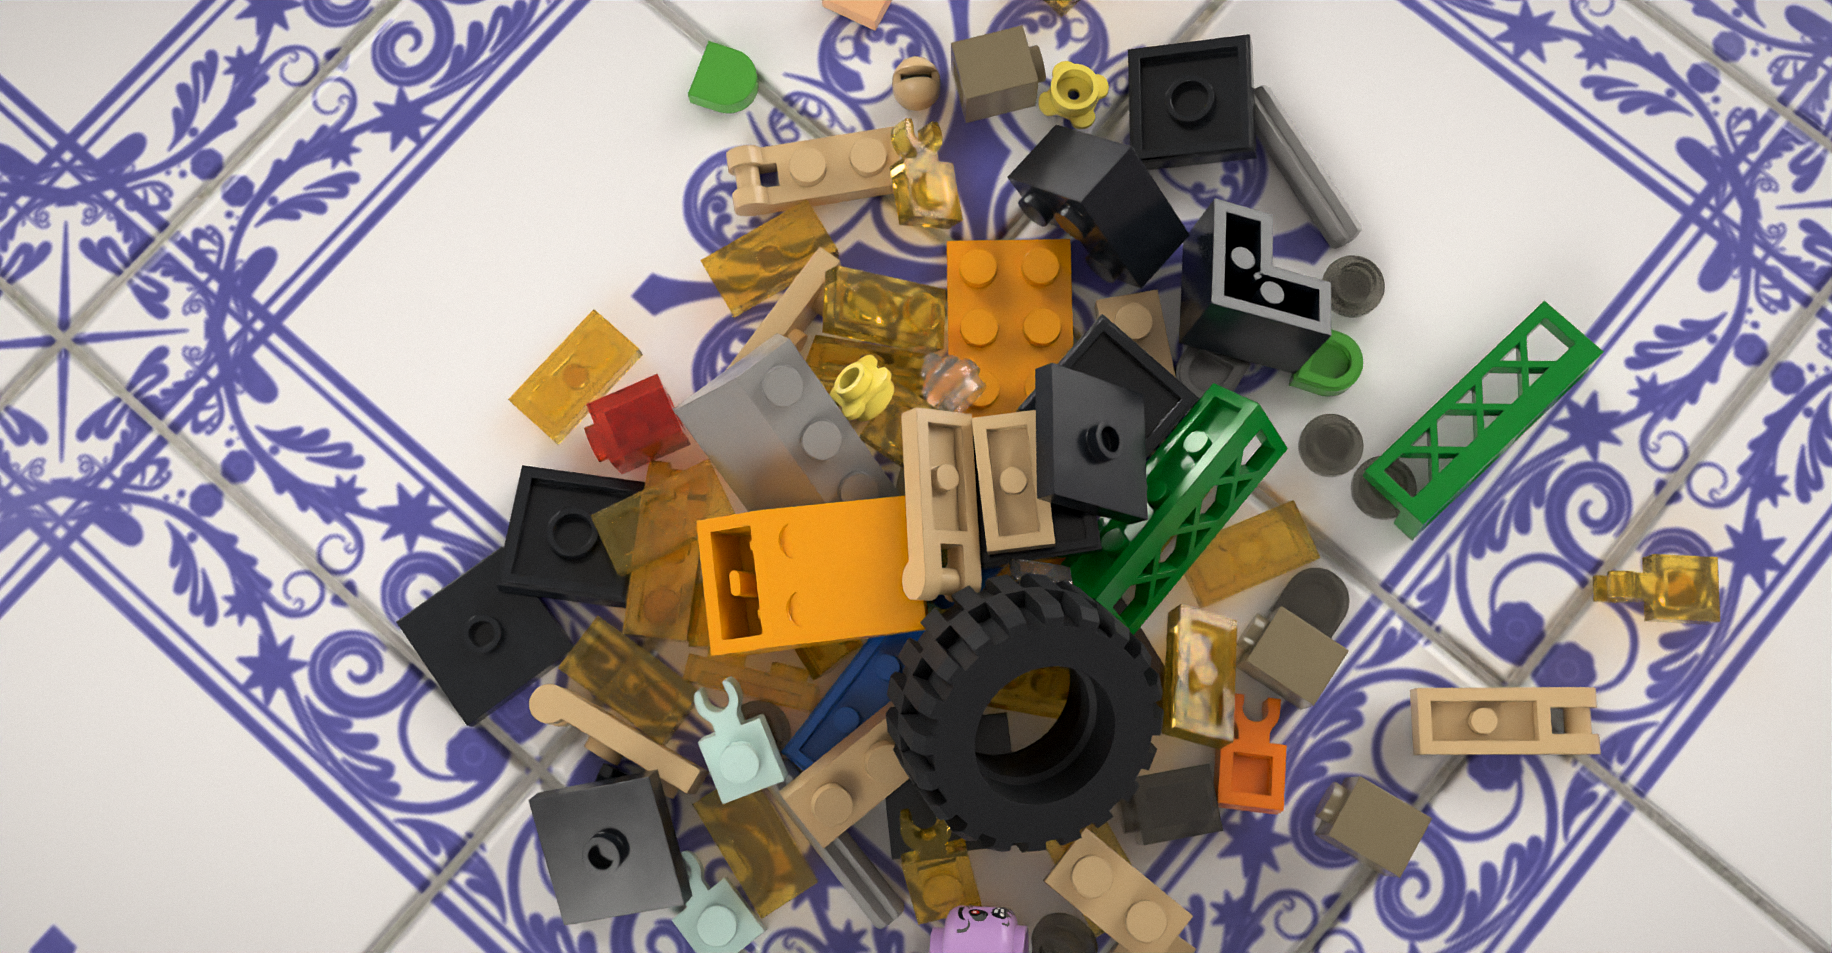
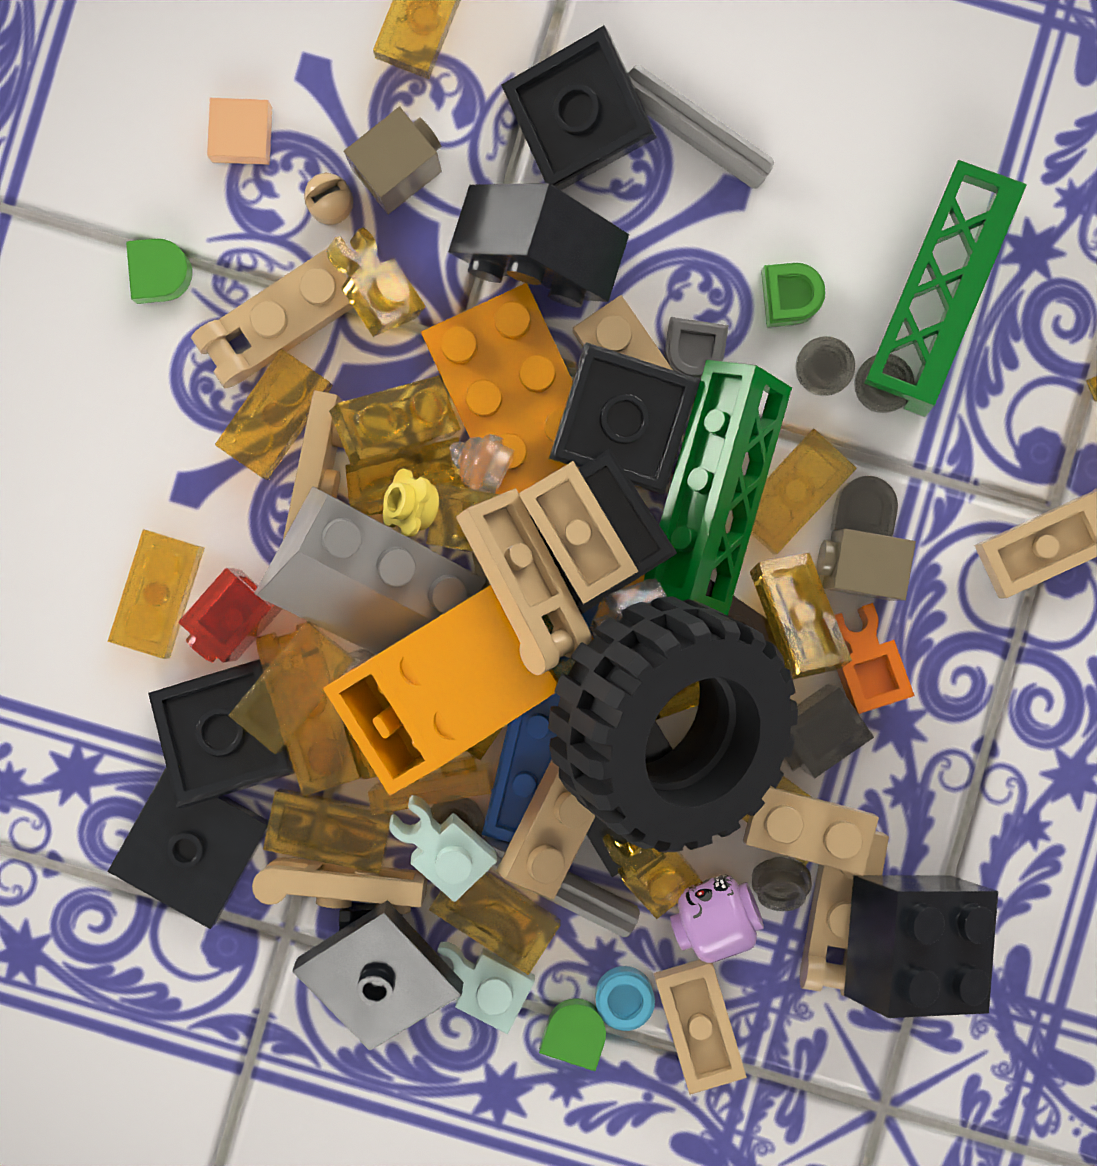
camera: 25 degrees left, 10 degrees up
(1076, 78) = (471, 131): light yellow plate -> none
(1090, 445) = (629, 469): black plate -> none
(1243, 303) = (699, 276): black brick -> none
(1355, 286) = (786, 216): clear smoke plate -> none
(1370, 825) = (989, 674): dark tan brick -> none

